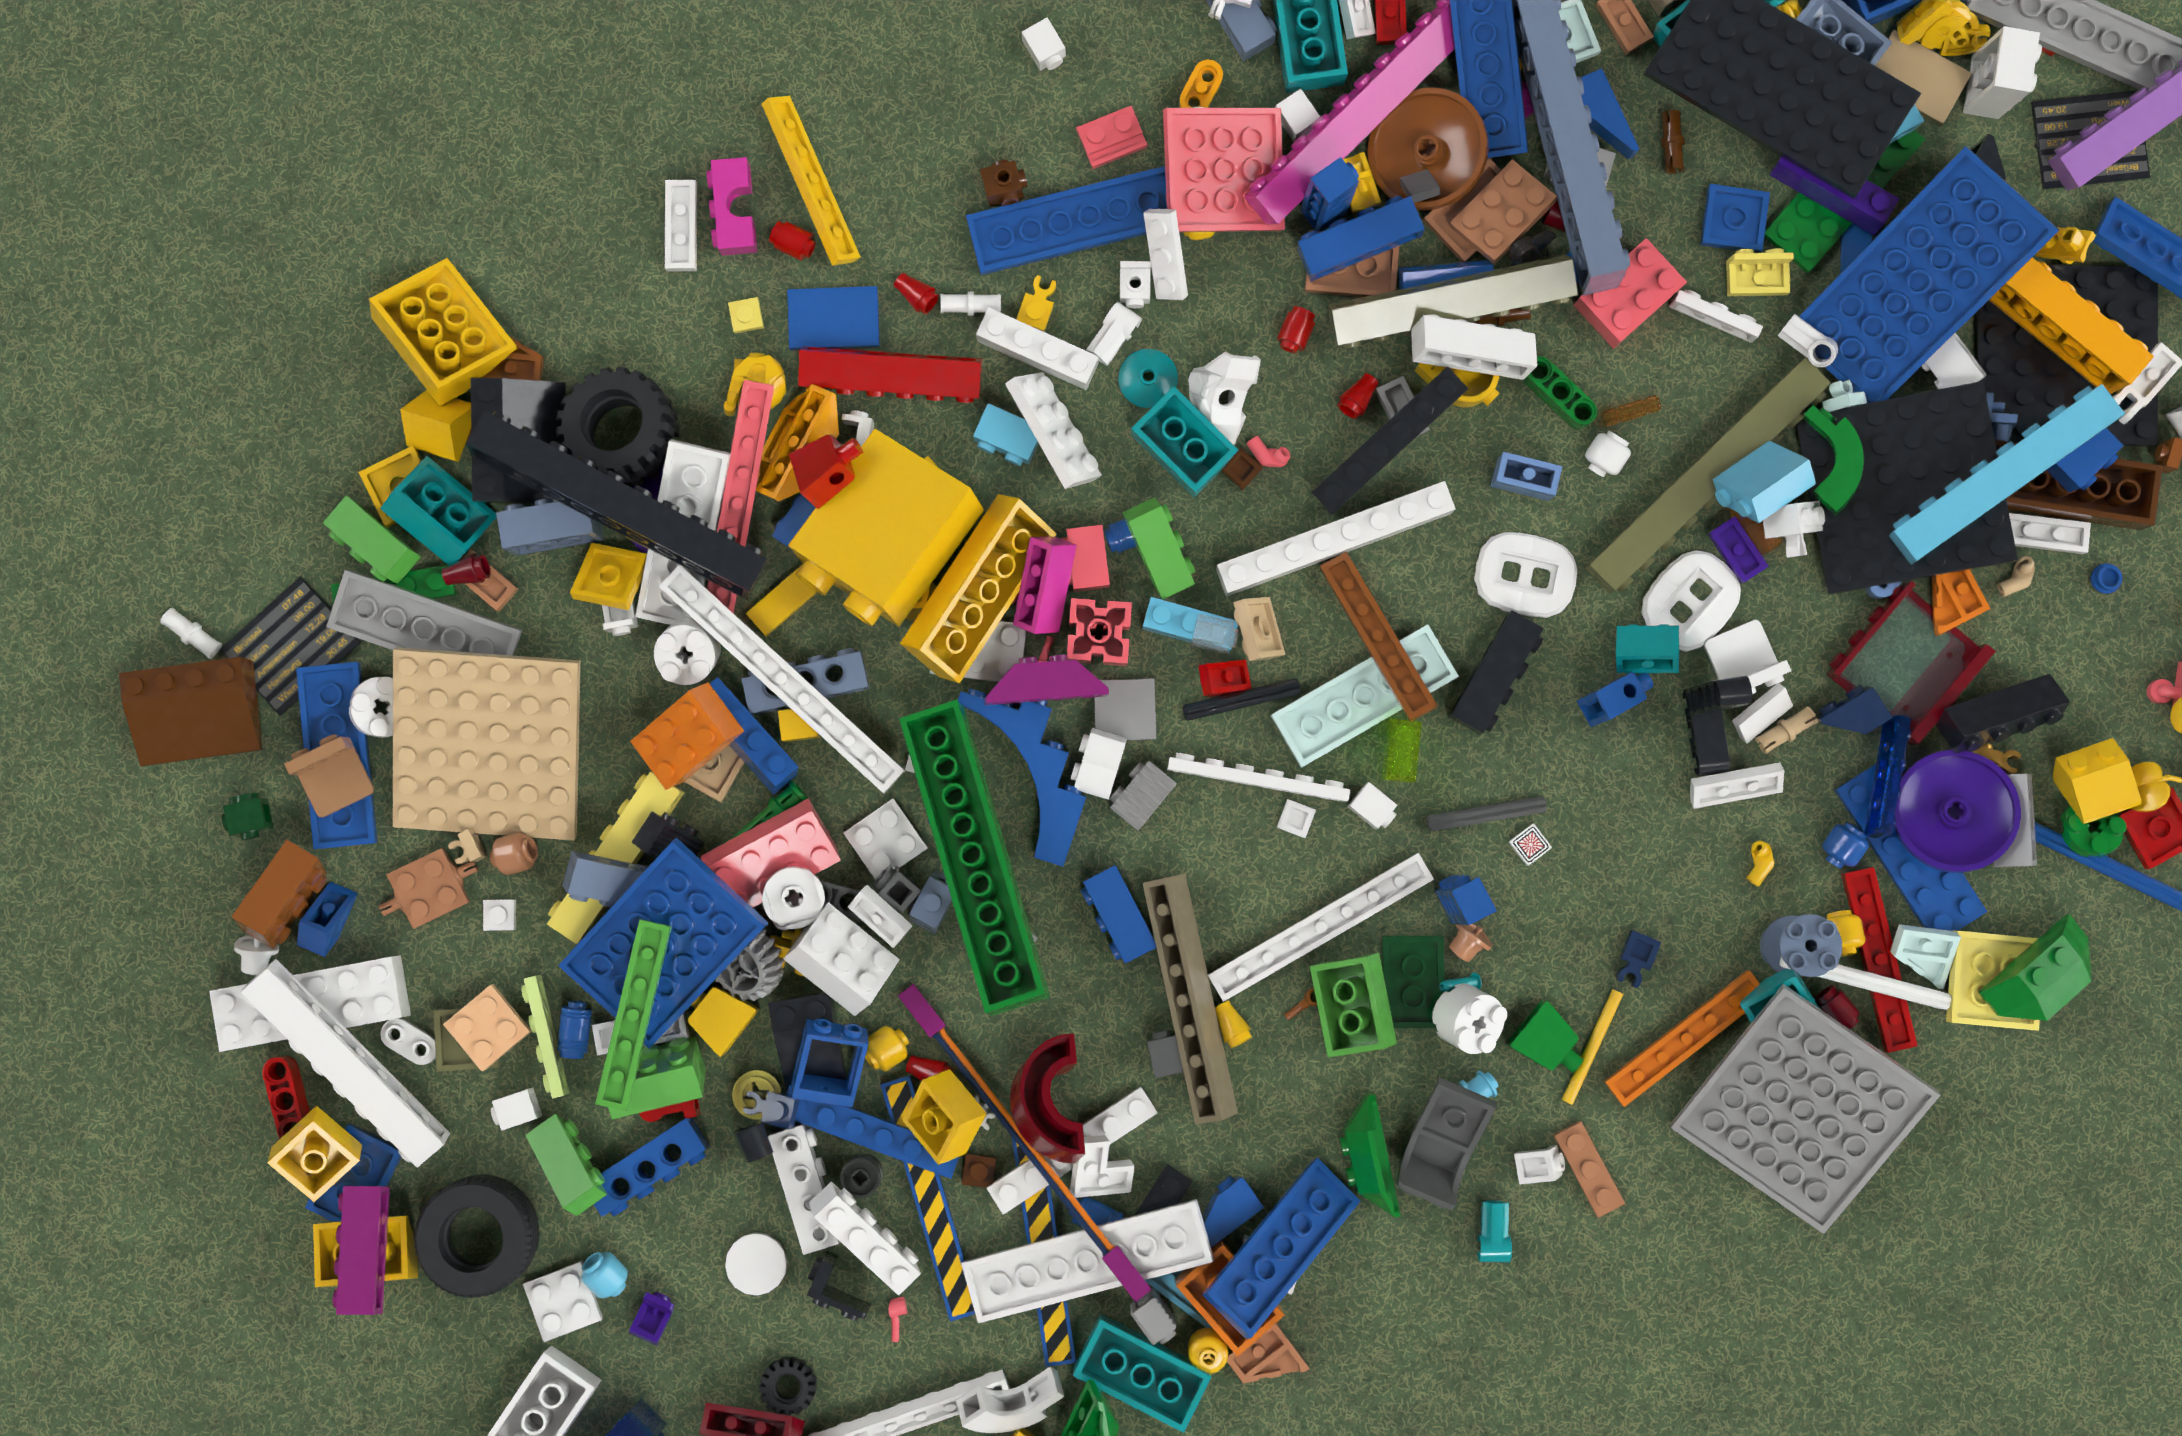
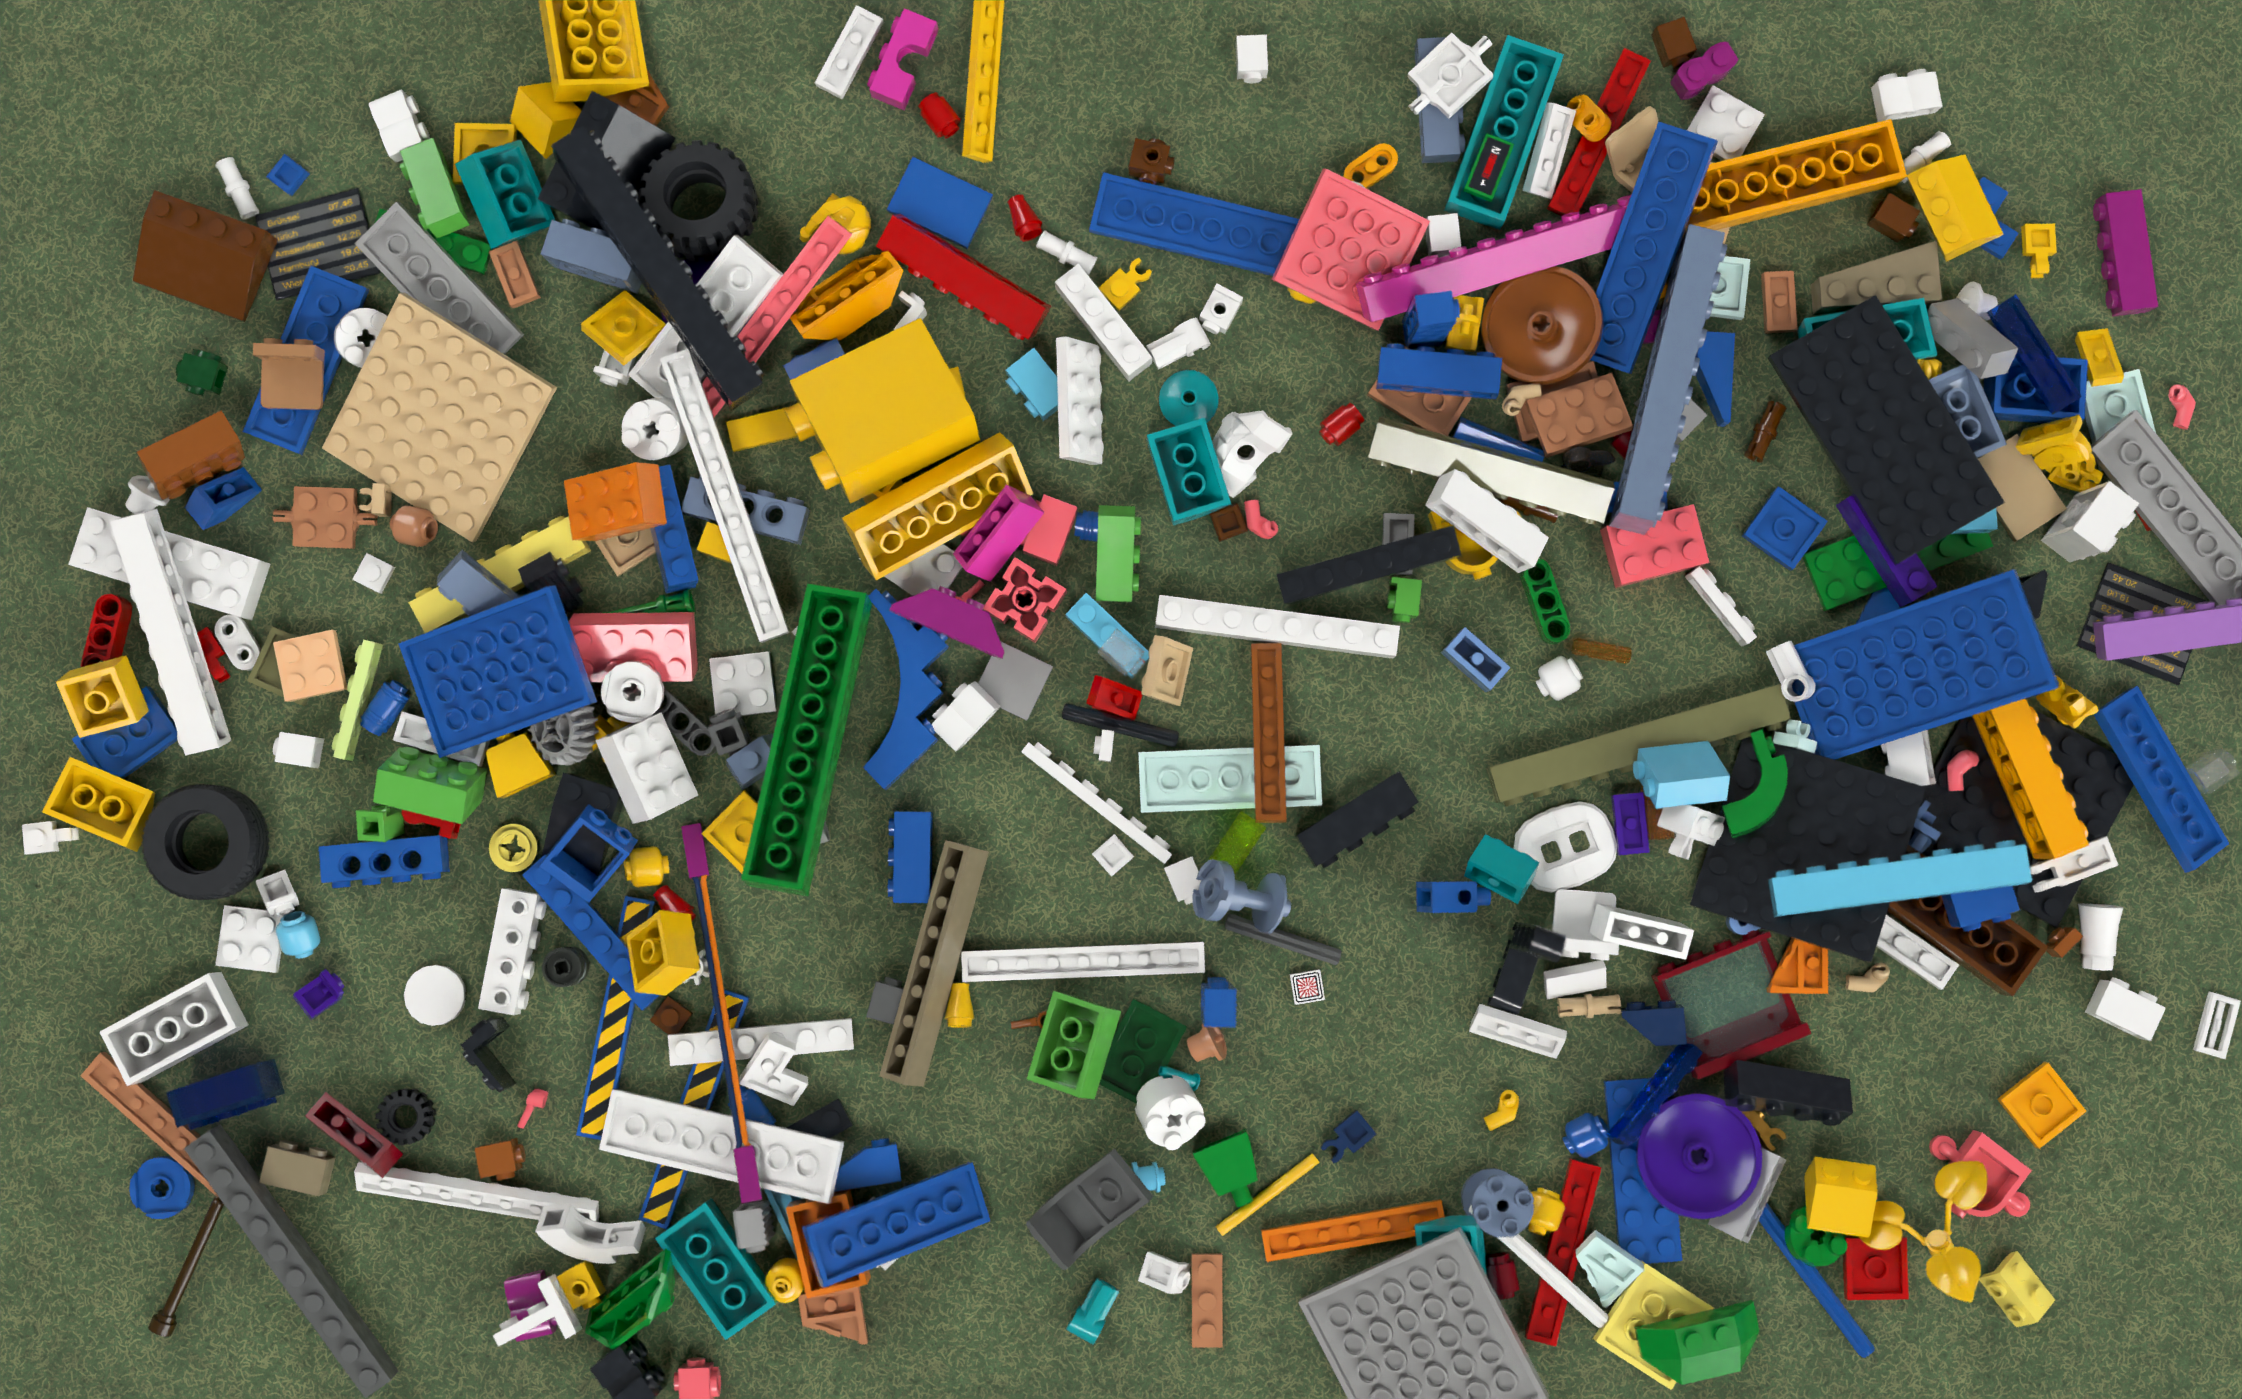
camera: 30 degrees right, 0 degrees up
(230, 597) = (288, 175): none -> blue tile
(307, 499) = (398, 122): none -> white brick
(321, 1312) = (44, 837): none -> white plate
(362, 1250) = (98, 801): magenta brick -> none
(391, 1062) = (212, 651): none -> red plate
(468, 570) = (504, 258): dark red cone -> none
(566, 1248) = (277, 893): none -> white bracket
(567, 1164) = (315, 820): bright green brick -> none
(625, 1136) = (379, 824): none -> bright green brick
(633, 1015) = (437, 720): bright green plate -> none
(746, 315) = (864, 160): light yellow plate -> none
(753, 1142) = (485, 886): black beam -> none
(776, 1108) = (522, 867): plate -> none
(824, 468) = (856, 329): red torso -> none
(865, 1238) = (538, 1022): white brick -> none
(880, 916) = (700, 748): white plate -> none
(893, 1378) = (500, 1159): none -> dark orange brick
(951, 974) = (733, 829): none -> yellow plate
(1033, 1106) = (744, 984): dark red brick -> none
(1111, 137) = (1269, 170): coral plate -> none
(1142, 795) = (988, 763): light grey brick -> none
(1165, 254) = (1259, 297): white plate -> none
(1237, 724) = (1104, 745): none -> white plate
(1309, 33) = (1488, 167): none -> tile
(1357, 397) = (1363, 512): red cone -> none
(1368, 1156) = (1017, 1186): green wedge -> none
(1414, 799) = (1221, 892): none -> sand blue piece
(1420, 185) = (1517, 354): dark grey tile -> none
(1434, 455) = (1404, 599): none -> bright green brick
(1440, 223) = (1517, 396): none -> tan arm
(1530, 553) = (1444, 730): white piece -> none
(1758, 273) = (1780, 588): light yellow bracket -> none
(1799, 639) = (1641, 931): none -> white brick
(1999, 348) = (1958, 767): none -> coral arm
(2106, 578) = (1947, 1021): blue plate -> none

